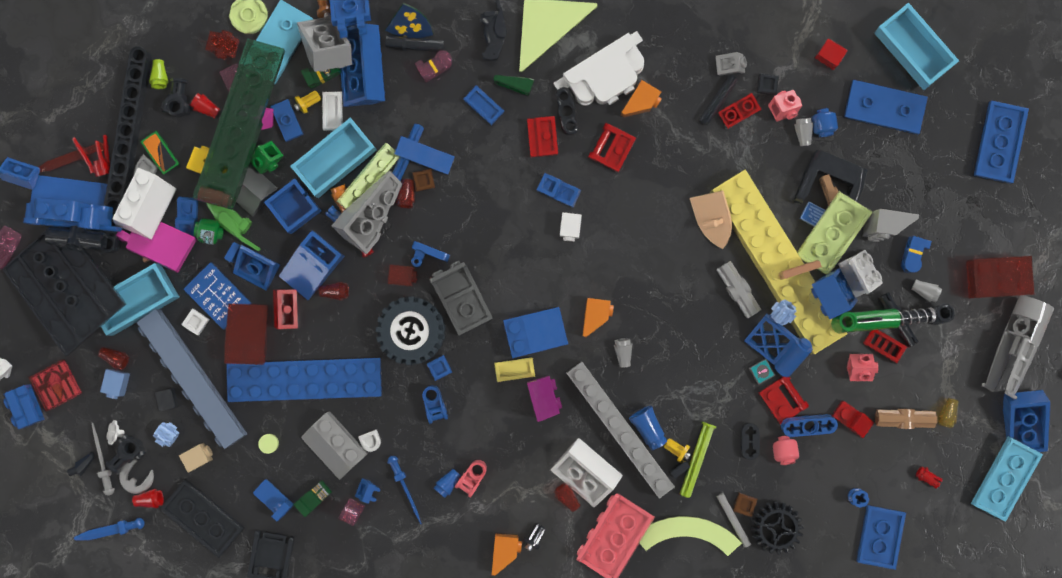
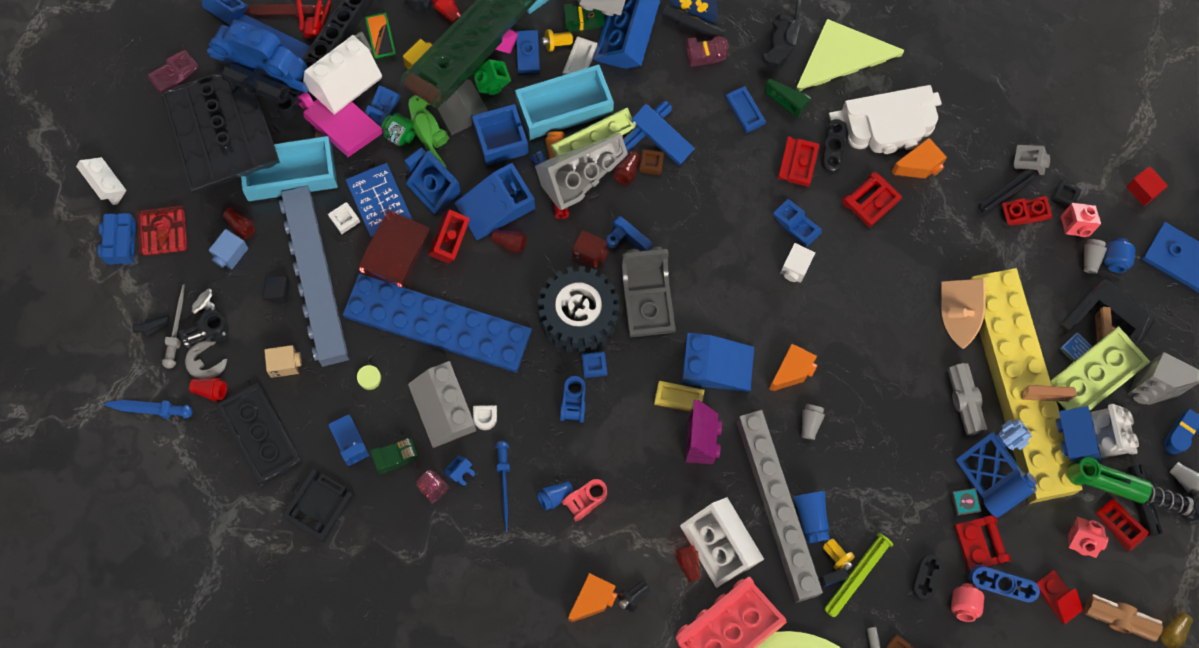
camera: 15 degrees right, 15 degrees down
(166, 434) = (259, 323): light blue gear -> none

